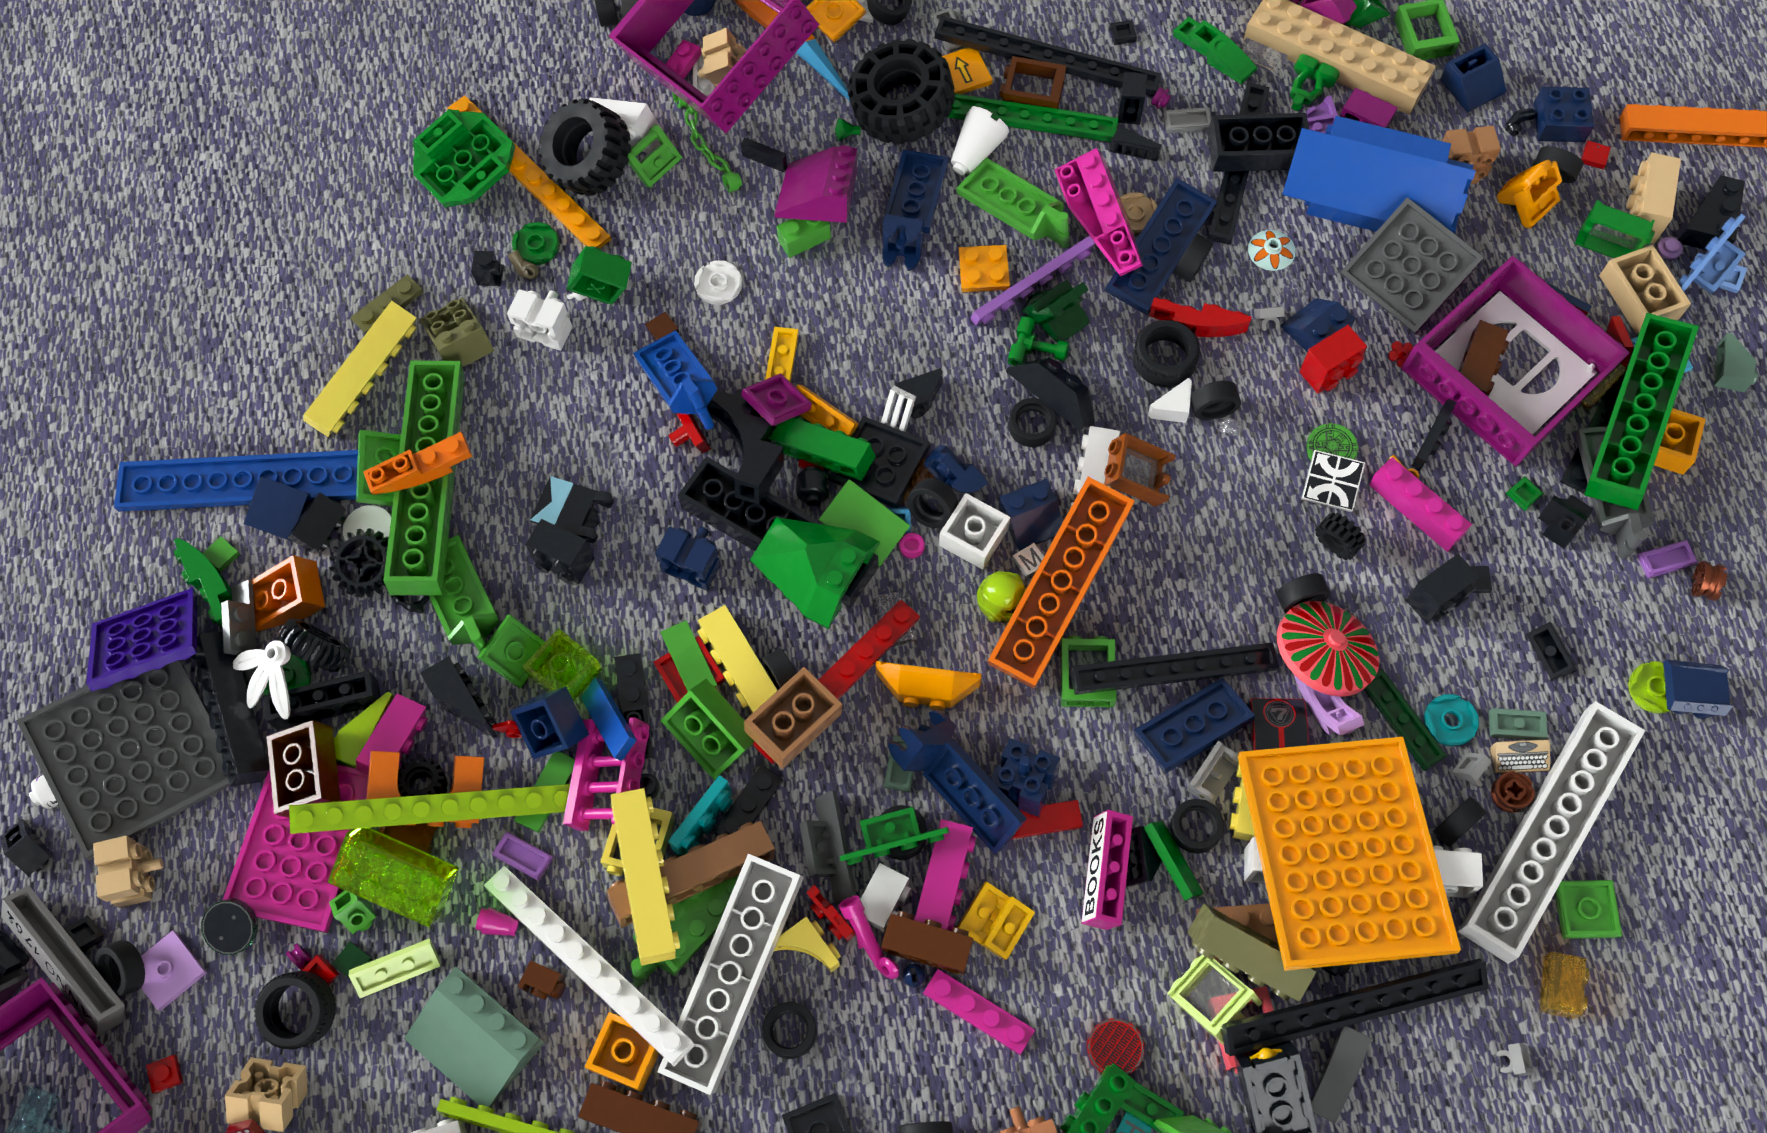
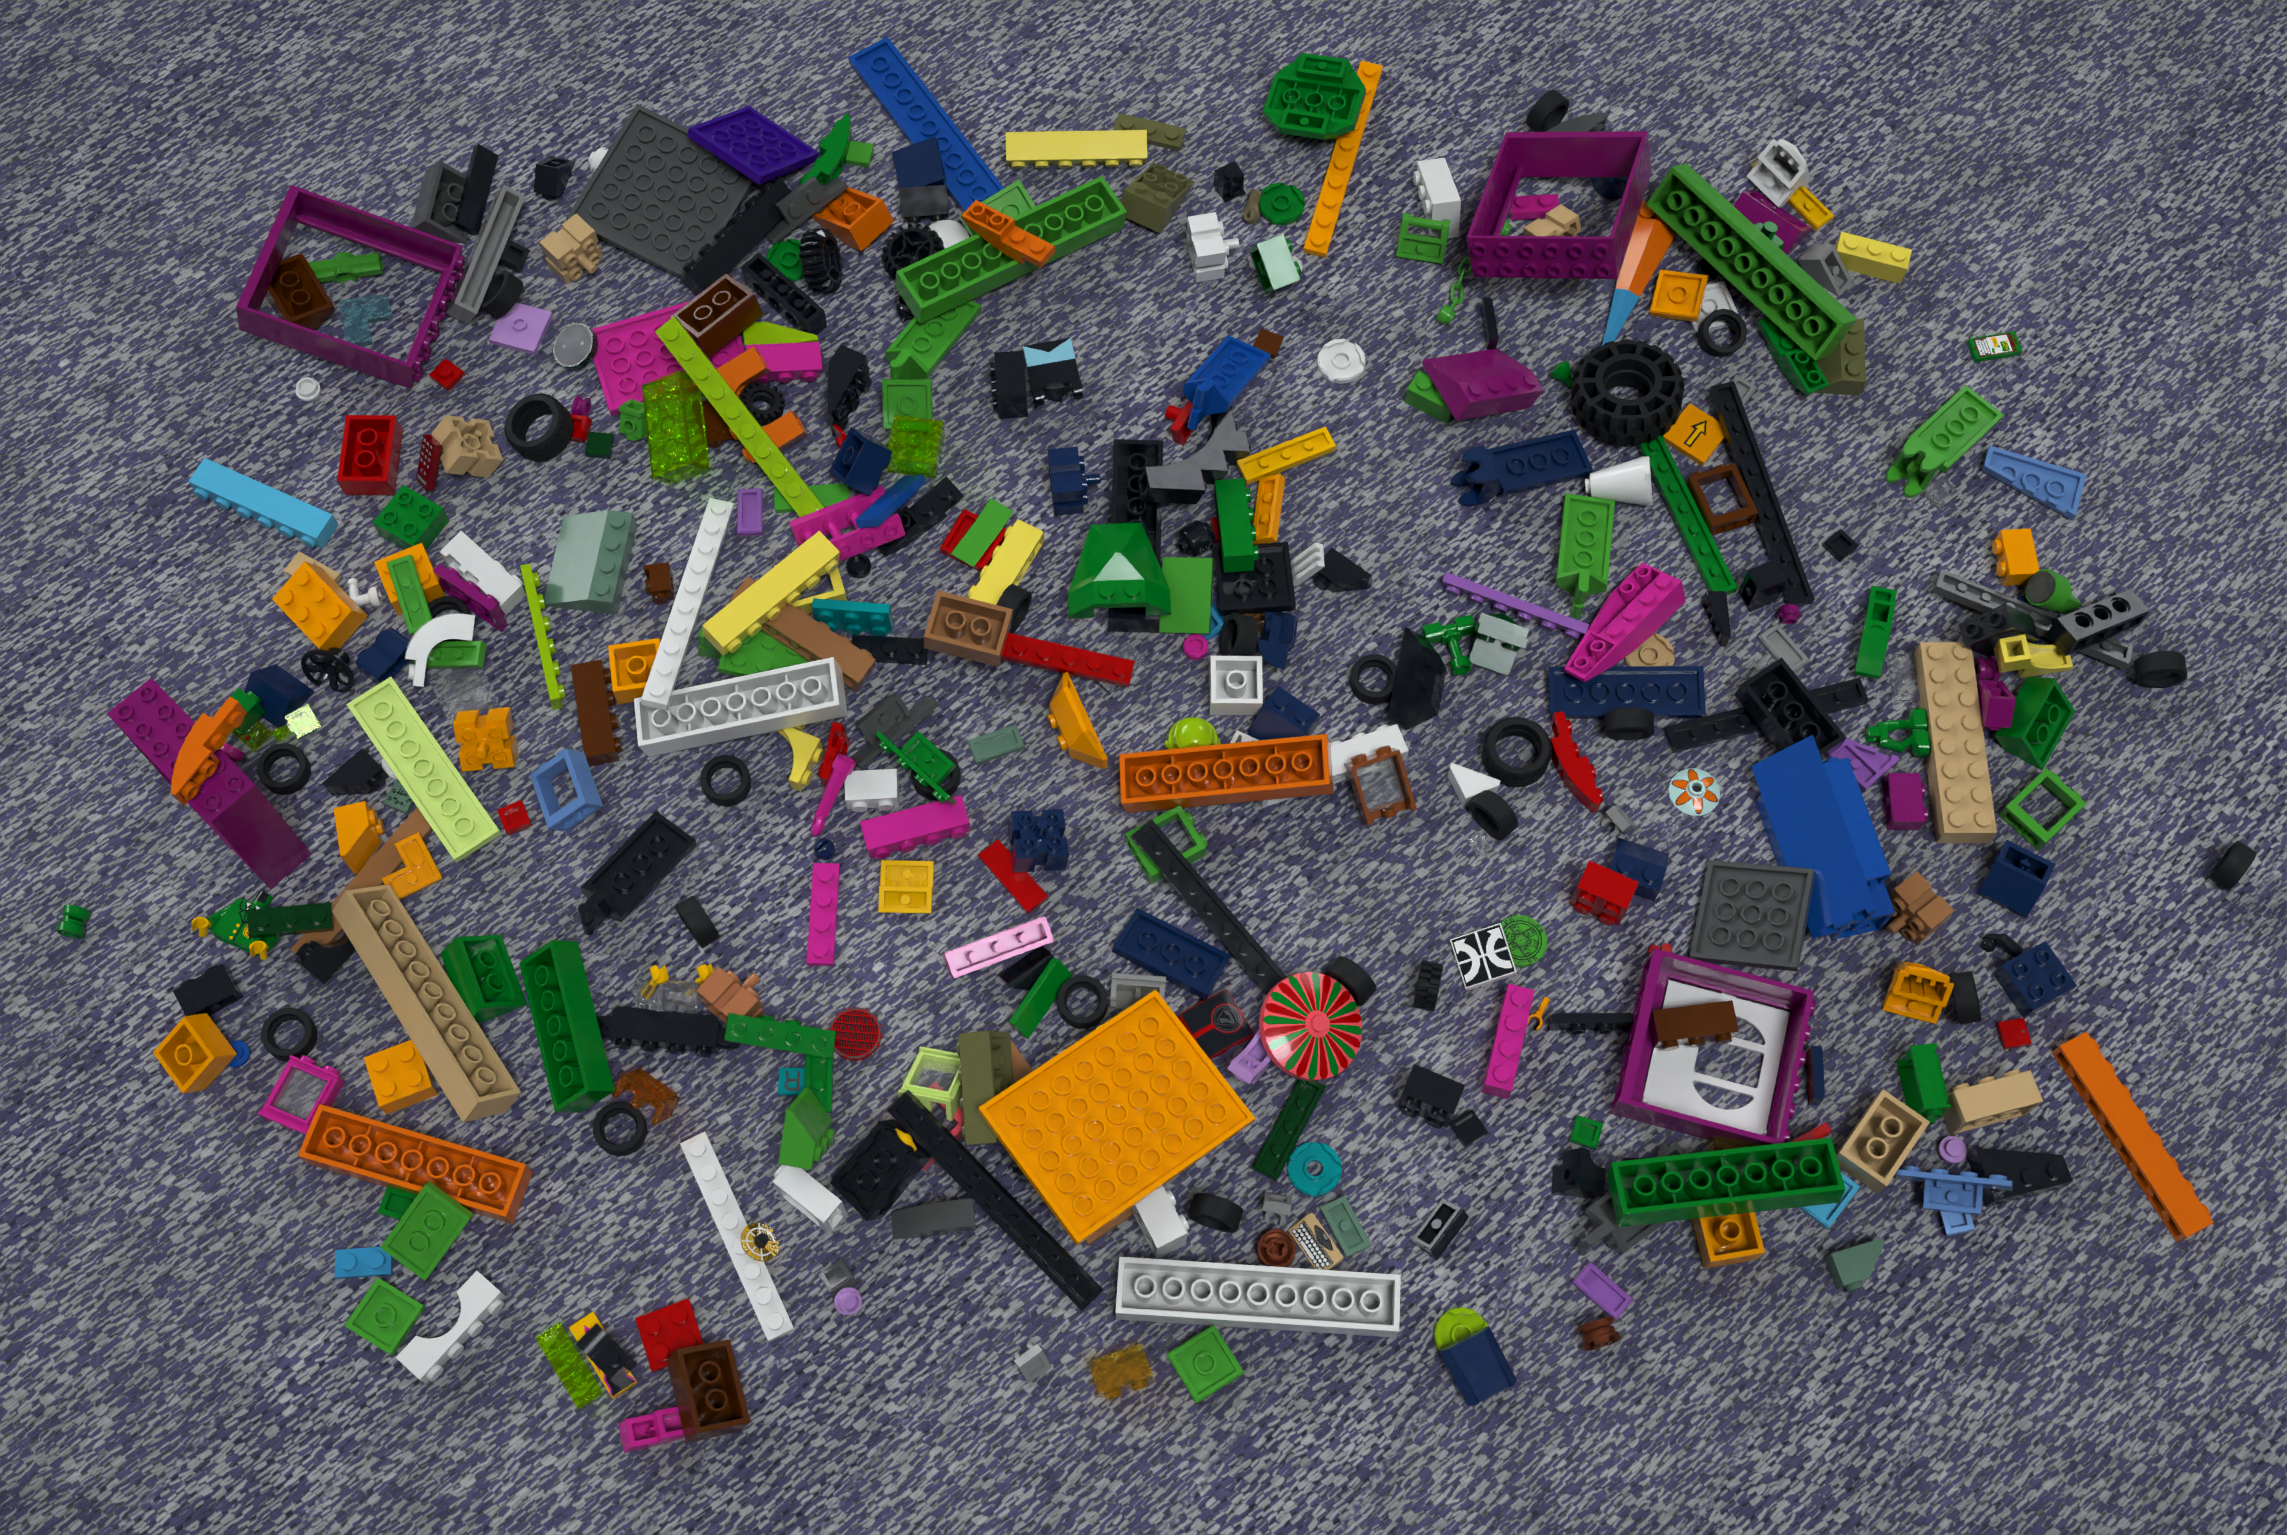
camera: 55 degrees right, 0 degrees up
(270, 668) = (784, 237): white plant -> none
(394, 968) = (610, 476): yellowish green plate -> none
(496, 923) = (685, 523): dark pink cone -> none
(564, 136) = (1386, 180): black tyre -> none
(708, 728) = (931, 569): bright green slope -> none
(776, 399) = (1252, 463): magenta tile -> none
(927, 943) = (849, 838): reddish brown slope -> none
(958, 780) = (1013, 757): dark blue hinge -> none
(984, 268) = (1502, 560): light orange plate -> none

